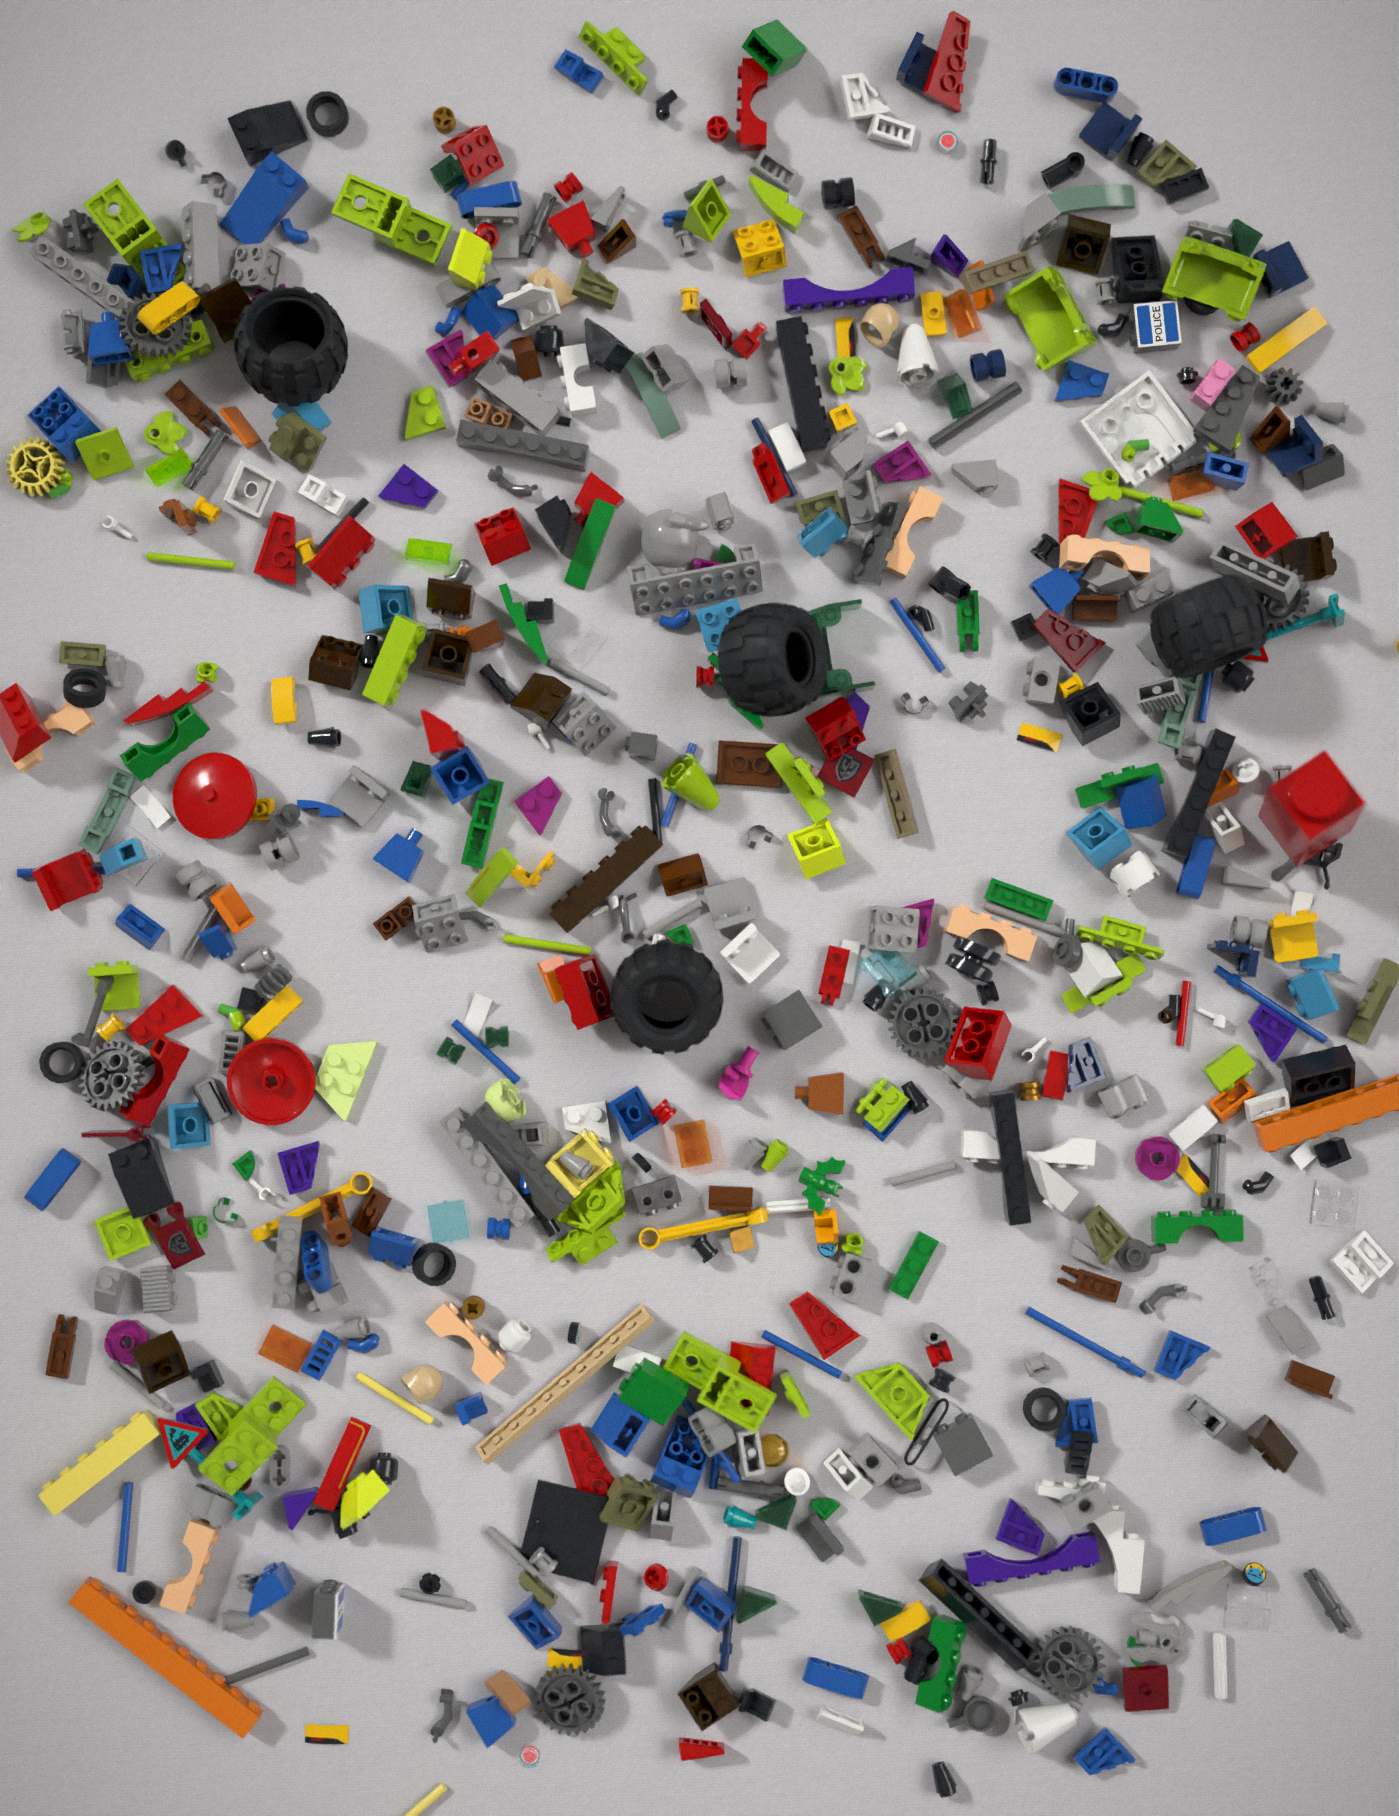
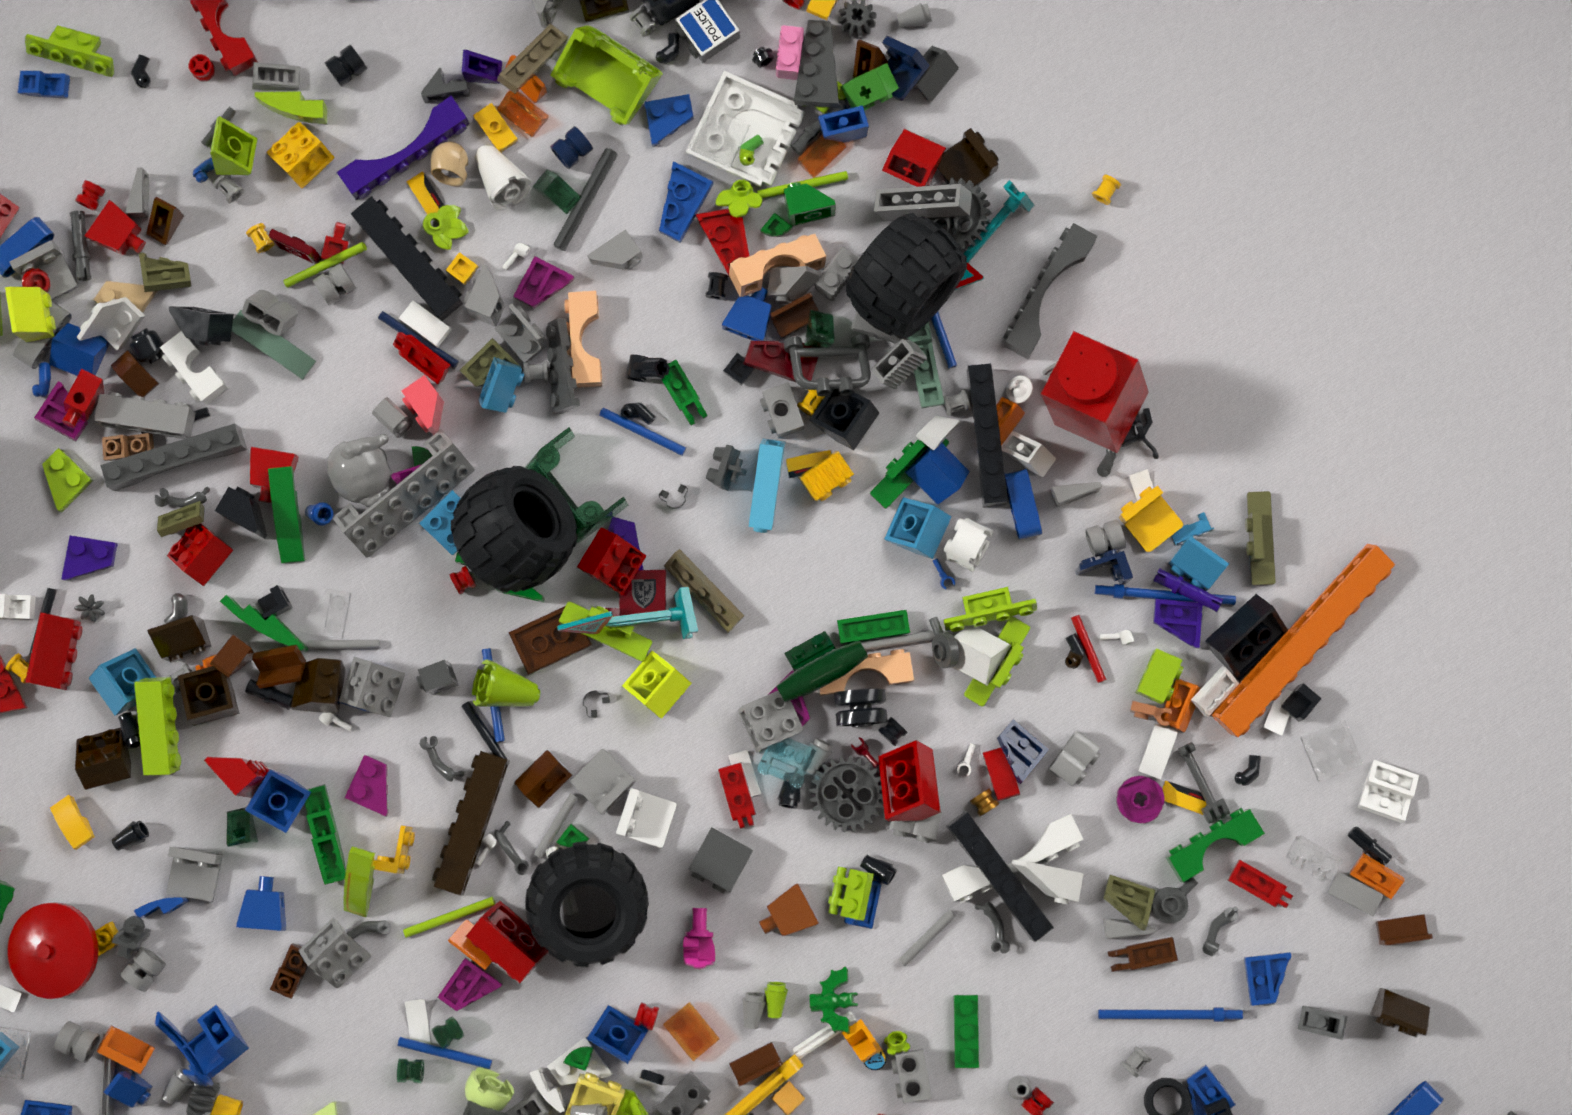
camera: 20 degrees left, 5 degrees down
(301, 945) = (211, 1049): none -> blue piece
(389, 532) = (90, 608): none -> dark grey plant
(428, 551) = (137, 605): clear neon green slope -> none
(501, 500) = (180, 519): none -> olive plate
(518, 665) = (279, 666): none -> reddish brown panel
(533, 1008) = (468, 985): none -> magenta wing
(554, 1133) = (552, 1096): none -> white slope
(592, 1115) = (579, 1057): none -> green tile
(617, 557) = (319, 513): none -> blue cone
(677, 621) = (409, 542): blue arm -> none
(731, 352) = (325, 264): none -> lime bar
(753, 512) = (426, 402): none -> coral slope
(860, 235) = (388, 92): reddish brown hinge -> none
(870, 802) = (682, 612): none -> teal piece
(954, 994) = (863, 750): none -> dark red hand
(957, 906) = (818, 664): none -> dark green plate
(986, 1181) = (991, 912): none -> dark grey piece
(995, 735) = (766, 485): none -> medium azure slope
(1048, 755) = (825, 476): none -> yellow brick
(1057, 460) = (684, 199): none -> blue wing
(1088, 679) = (823, 385): none -> dark grey bar
(1098, 888) = (942, 573): none -> blue hand
(1109, 632) = (819, 330): none -> clear green slope
(1159, 767) = (937, 431): none -> white slope
(1200, 1089) = (1143, 710): none -> nougat plate
(1215, 1279) = (1259, 884): none -> red hinge
(1237, 676) = (962, 307): black head -> none
(1274, 449) = (870, 87): none -> bright green brick
(1279, 726) = (1073, 250): none -> dark grey arch
(1292, 1011) = (1188, 590): none -> dark purple pin
(1314, 1324) = (1377, 876): none -> orange plate

